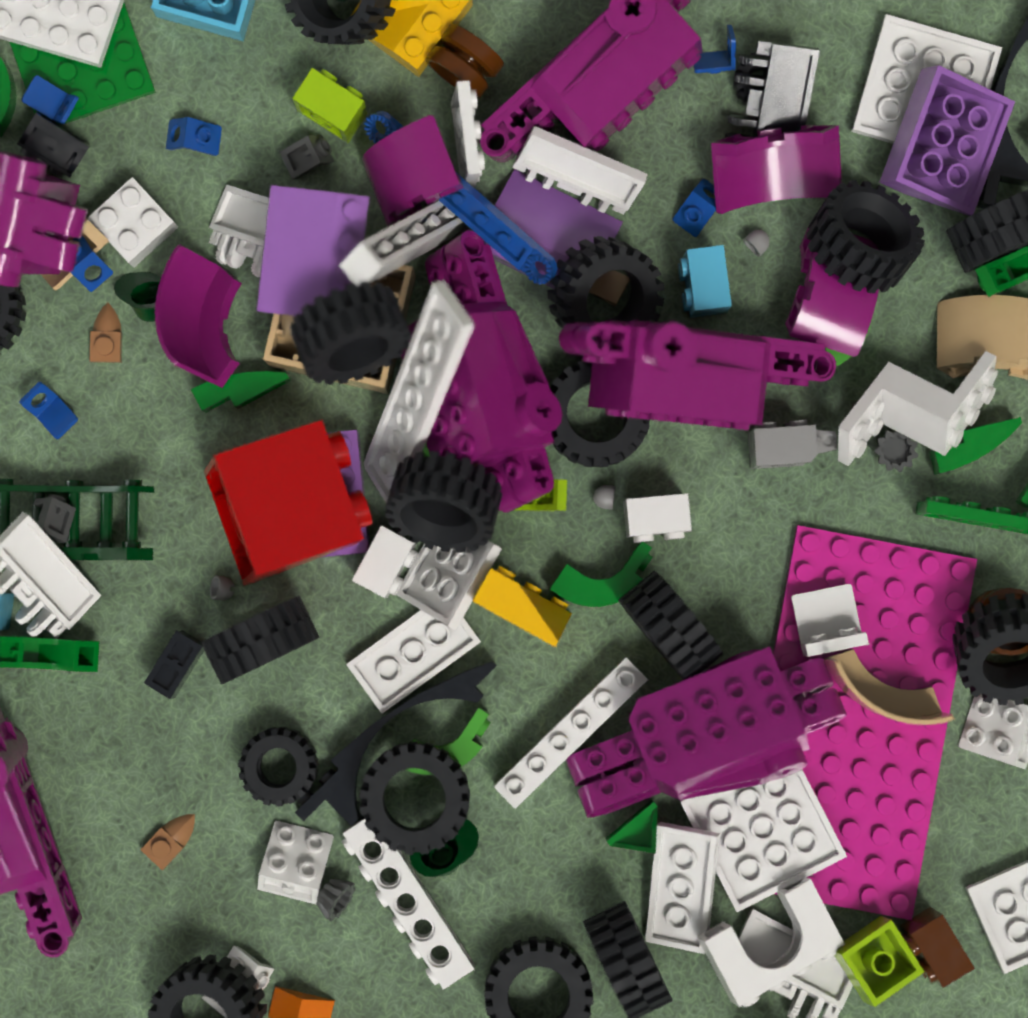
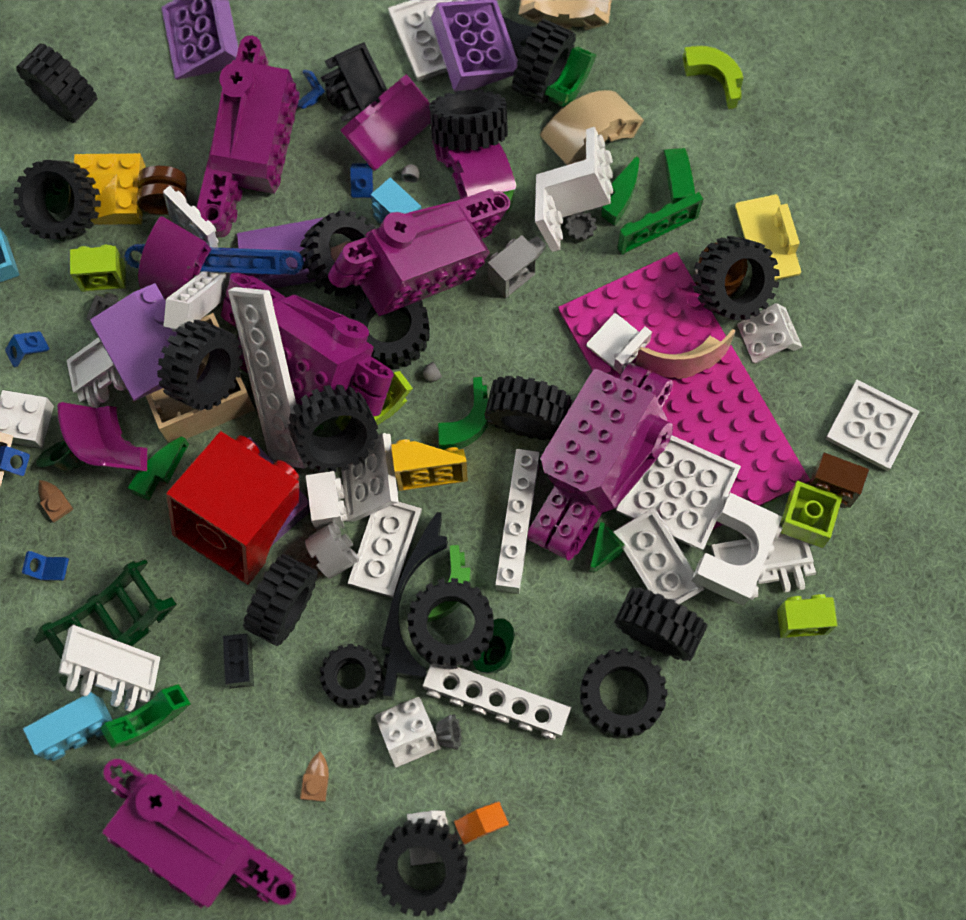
camera: 30 degrees left, 15 degrees down
(55, 517) = (95, 622): dark grey bracket -> none
(220, 588) = (234, 596): light grey hinge -> none
(352, 621) = (331, 550): none -> light grey brick
(579, 171) = (274, 198): white hinge -> none
(657, 516) = (470, 356): white brick -> none

